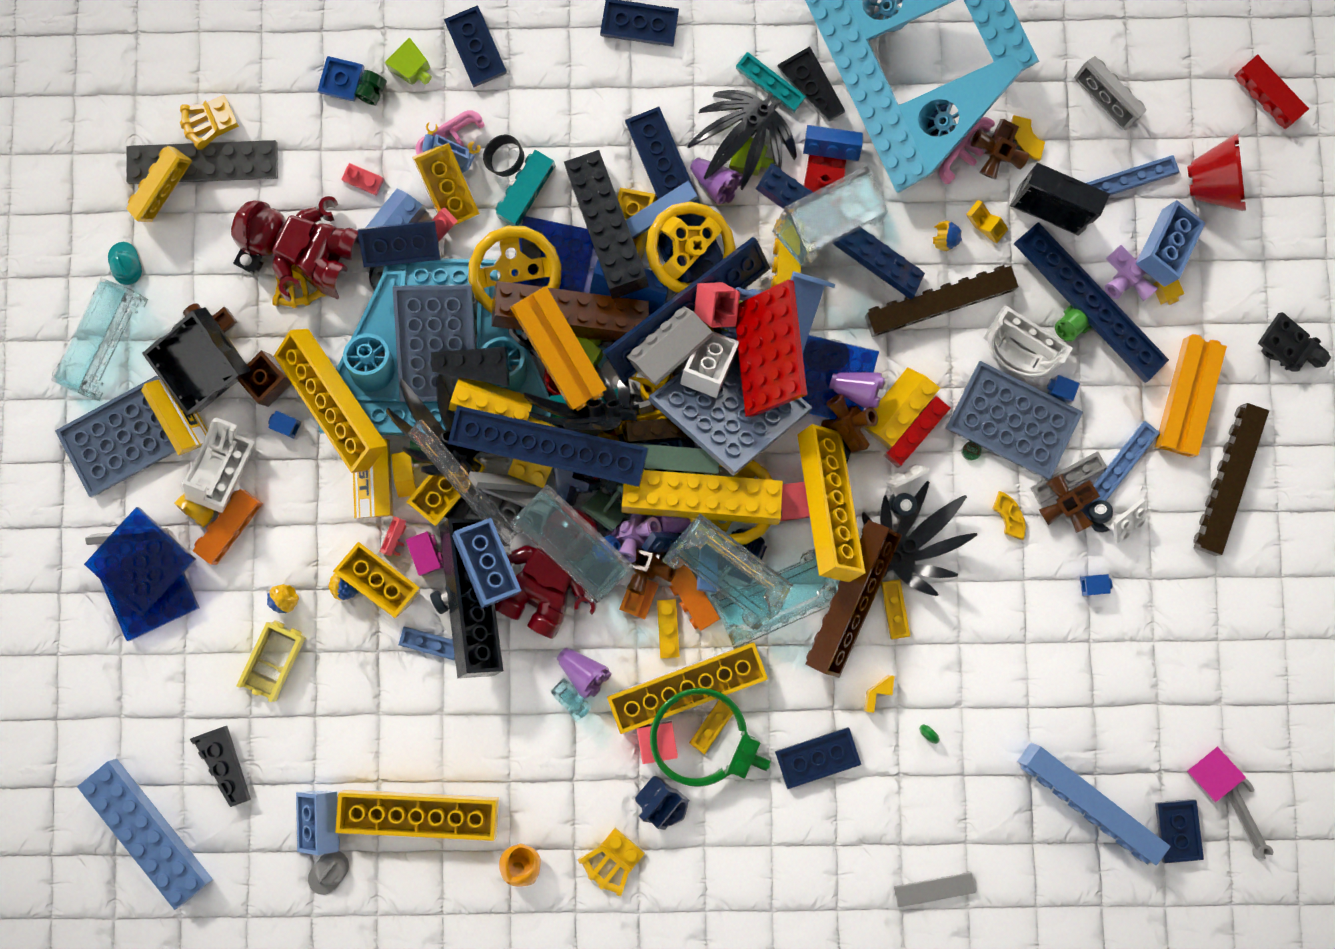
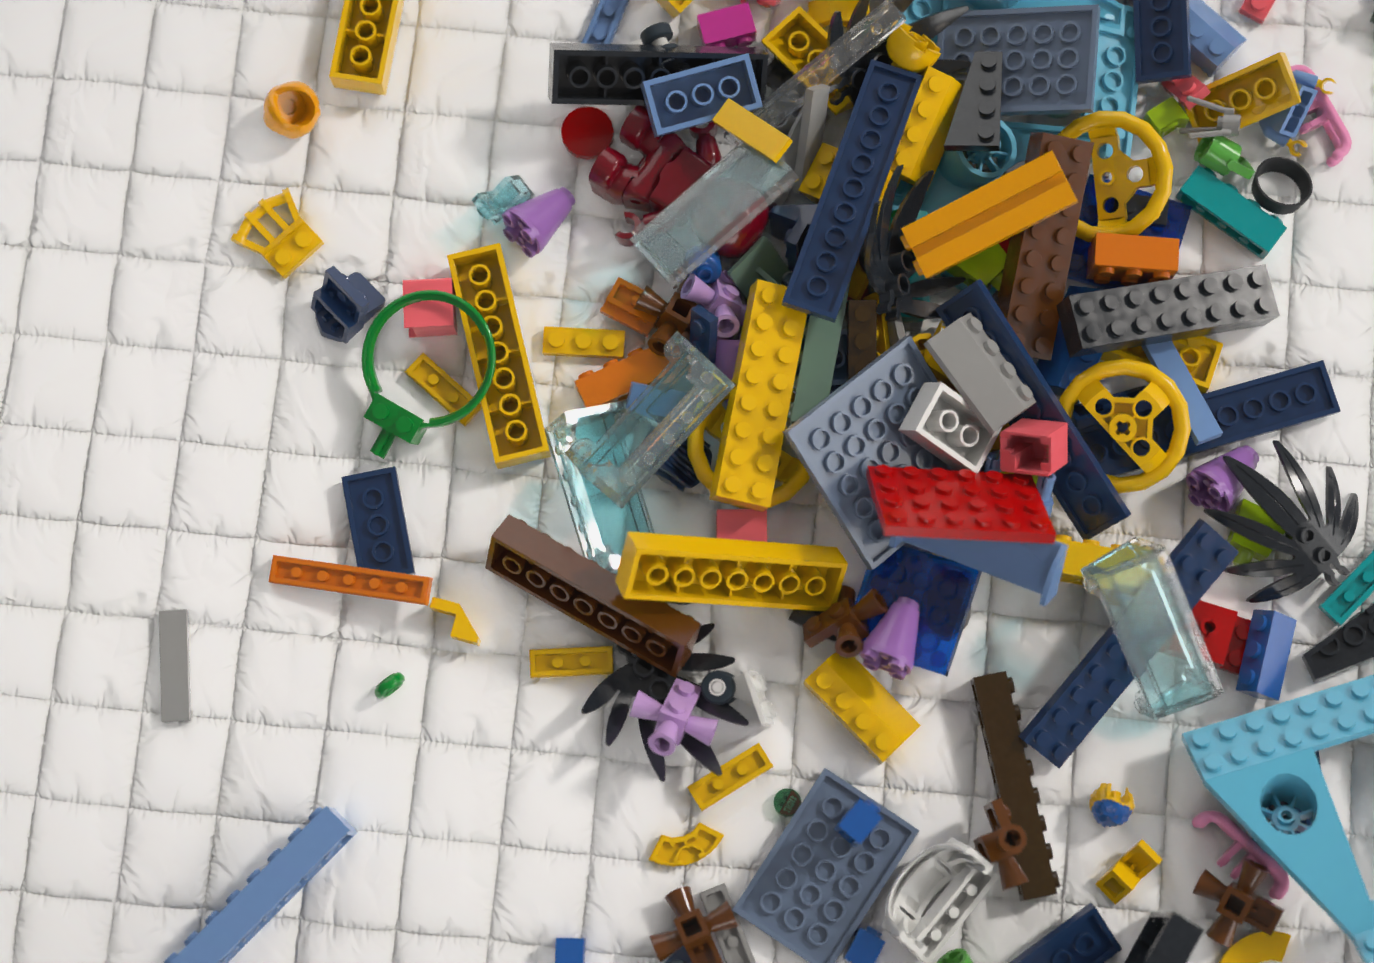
camera: 95 degrees right, 5 degrees down
(438, 414) = (911, 50): none -> yellow cylinder
(462, 239) = (1166, 117): none -> lime window
(467, 194) = (1226, 125): none -> light grey plant
(487, 196) = (1222, 156): none -> bright green piece
(513, 521) = (752, 130): none -> yellow tile
(514, 645) = (587, 132): none -> red tile
(572, 250) = (1131, 258): none -> orange brick
(860, 772) = (350, 580): none -> orange tile
(917, 431) = (823, 723): red brick -> none
(931, 531) = (674, 717): none -> lavender brick
(957, 487) = (734, 775): none -> yellow plate
(987, 303) = (1002, 844): none -> reddish brown brick
(988, 398) = (858, 821): none -> blue brick

